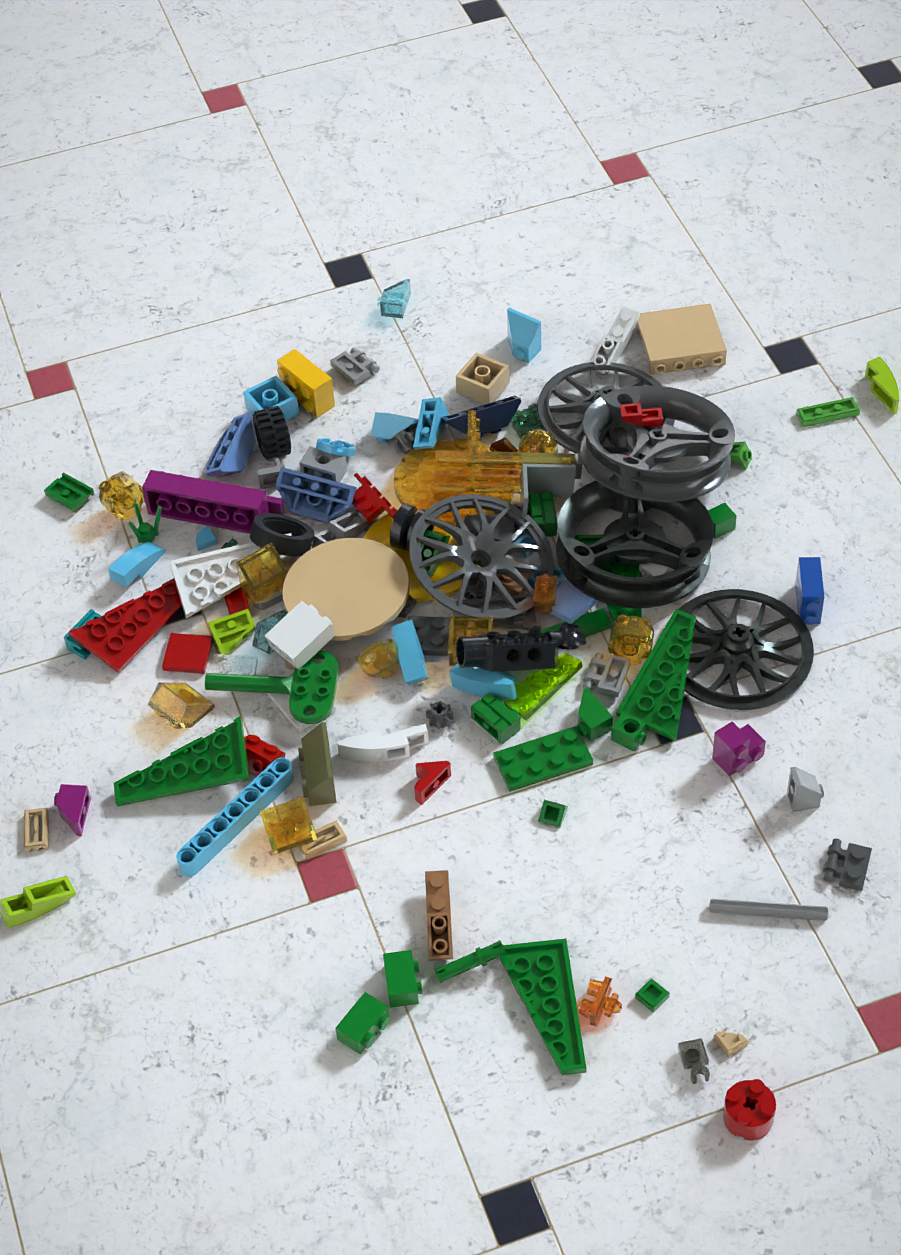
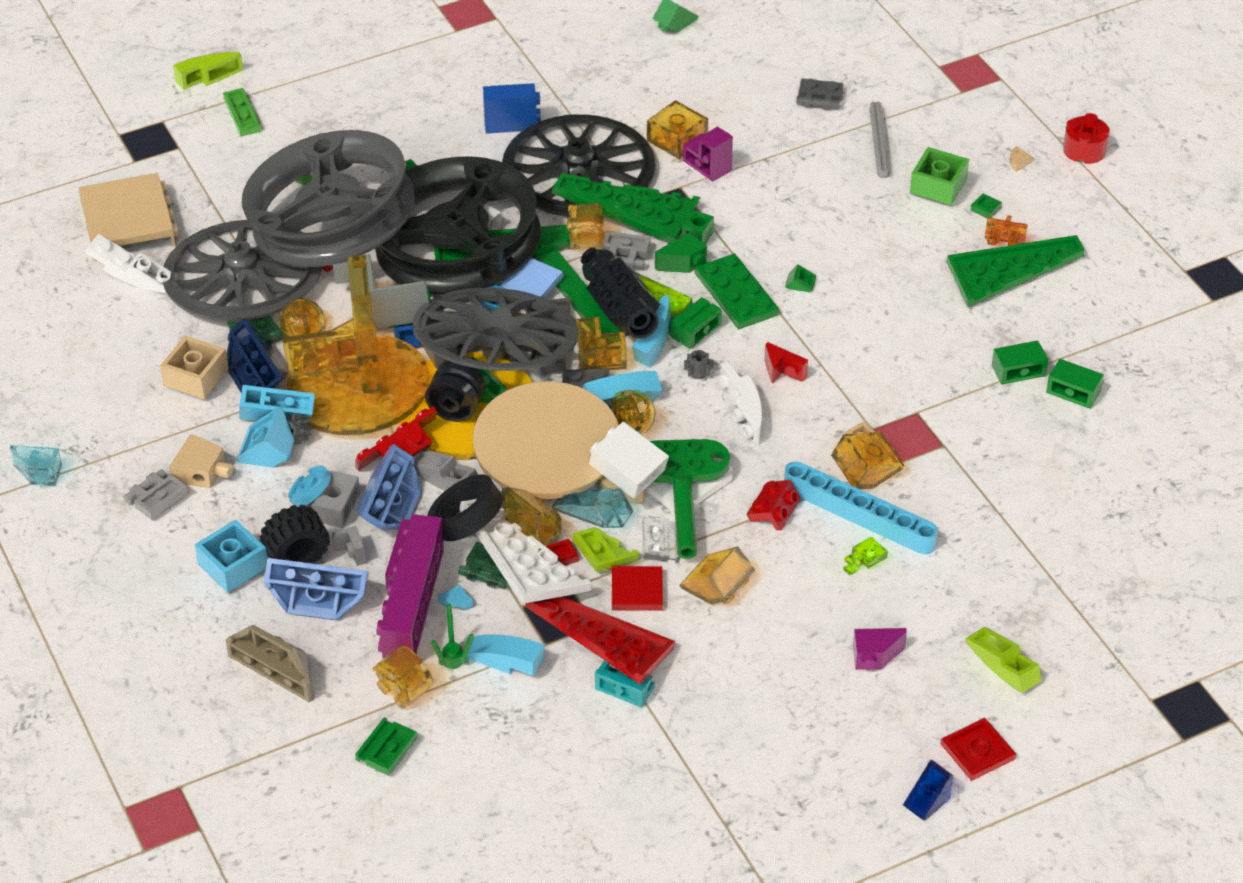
camera: 100 degrees left, 5 degrees down
(45, 829) = (909, 685): tan tile -> none
(161, 429) = (272, 659): none -> dark tan wedge
(181, 815) = (864, 553): none -> clear neon green plate
(196, 766) = (808, 538): green wing -> none
(306, 382) = (197, 518): yellow brick -> none
(317, 767) = (787, 439): olive slope -> none
(380, 387) = (200, 463): none -> tan torso
(438, 915) = (949, 344): medium nougat slope -> none
(470, 961) = (985, 307): green pin -> none
(523, 335) = (121, 337): medium azure slope -> none
(545, 592) = (533, 284): clear orange hips -> none
(645, 417) = (297, 198): red slope -> none
(688, 947) = (939, 176): none -> bright green brick
(695, 1057) = (1044, 176): clear smoke plate -> none
(778, 723) = (674, 127): none -> clear yellow brick
(803, 790) = (752, 114): light grey slope -> none

